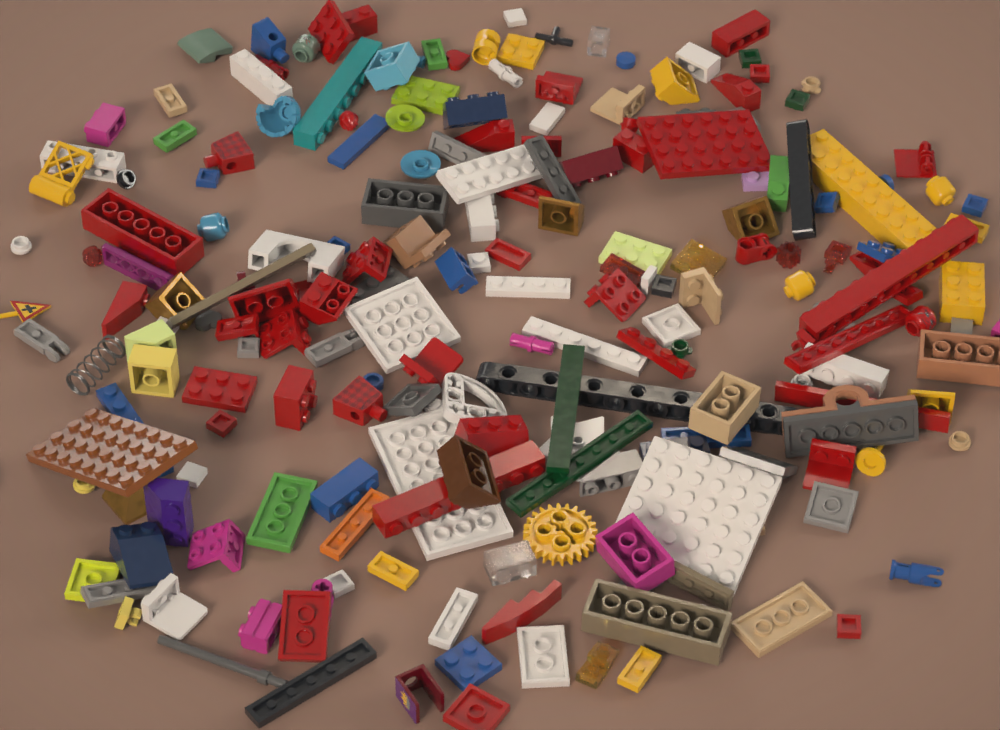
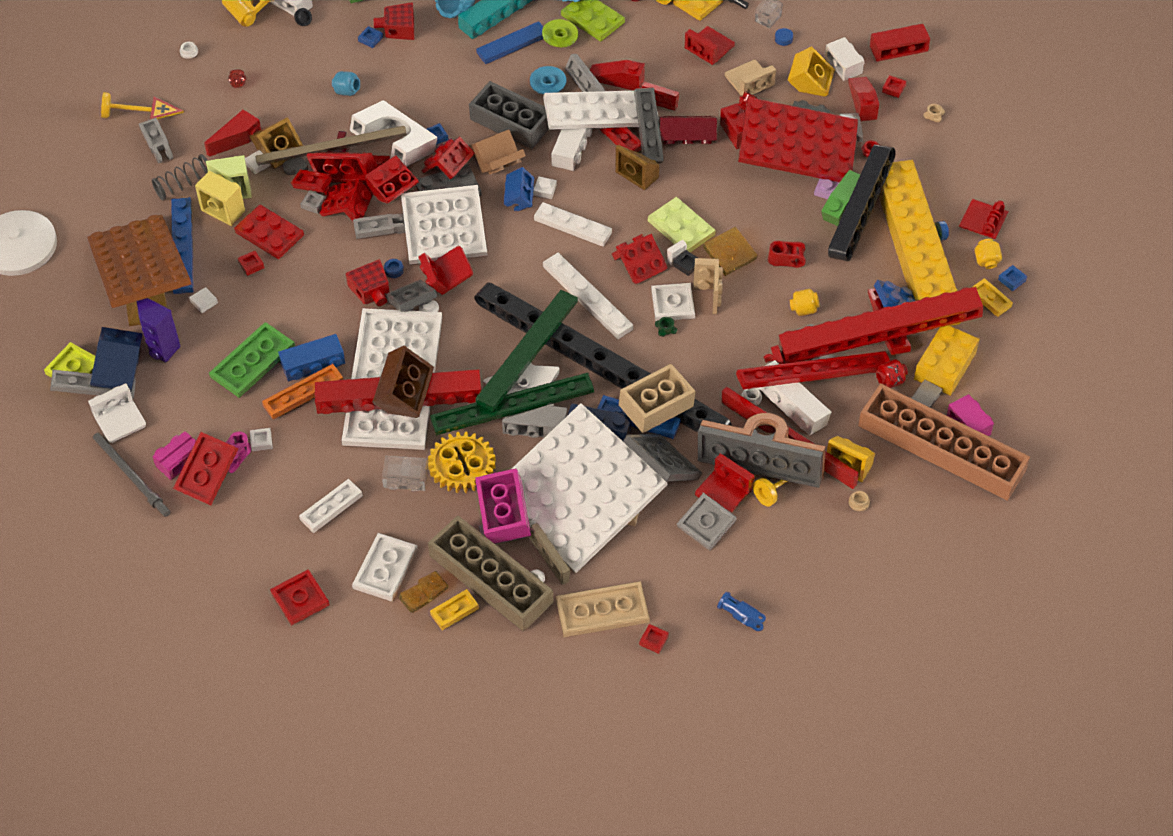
camera: 25 degrees right, 10 degrees up
(127, 614) = (80, 404): light yellow tile -> none
(135, 267) = (266, 99): magenta fence -> none
(142, 232) = (285, 71): red brick -> none
(217, 542) = (186, 371): dark pink bracket -> none
(295, 398) = (316, 261): red brick -> none
(310, 683) = (186, 519): black plate -> none
(348, 120) = (513, 20): red plate -> none
(393, 570) = (308, 444): yellow plate -> none
(424, 680) = (252, 552): dark red piece -> none
(457, 408) = (445, 316): white beam -> none
(468, 663) = (321, 550): blue plate -> none
(474, 110) = (615, 45): dark blue slope -> none
(493, 433) = (454, 352): red slope -> none
(505, 73) = (671, 17): white pin -> none
(508, 254) = (574, 188): red tile -> none
(522, 613) = (387, 523): red slope -> none
(532, 344) = (543, 278): dark pink pin -> none
(547, 118) = (682, 71): white tile -> none
(630, 270) = (660, 235): clear red plate -> none
(661, 356) = (642, 324): red plate -> none
(748, 57) = (894, 68): dark green plate -> none
(751, 219) = (800, 225): pearl gold slope -> none
(773, 134) = (866, 148): none -> red plate
(788, 255) = (813, 270): clear red gear -> none
(797, 100) = (912, 123): dark green plate -> none
(827, 202) = (878, 231): blue plate -> none
(834, 254) = (857, 283): clear red plate -> none

